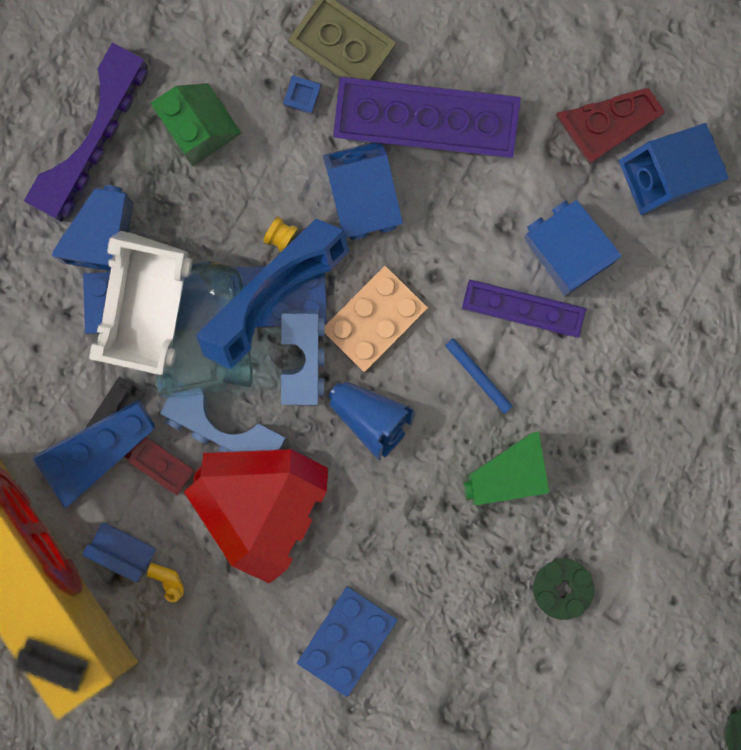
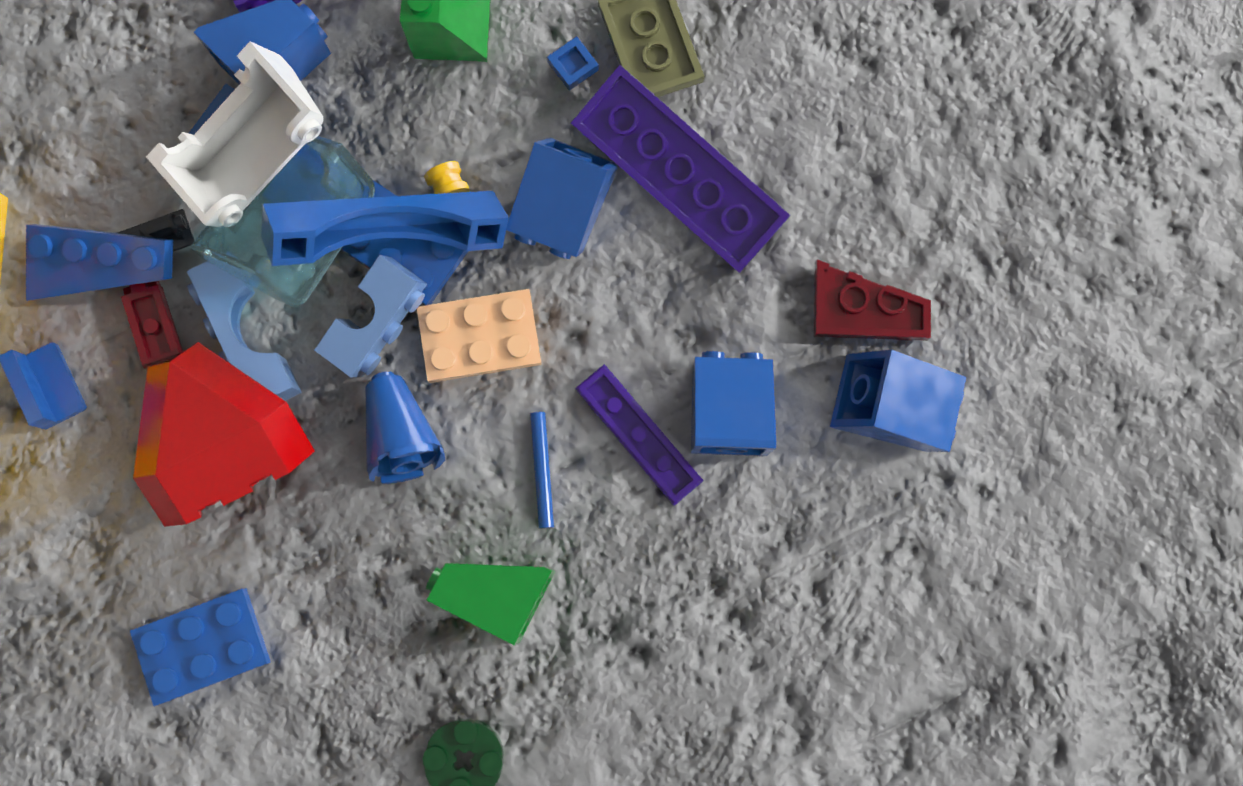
camera: 30 degrees right, 5 degrees down
(170, 580) = (72, 451): yellow arm -> none

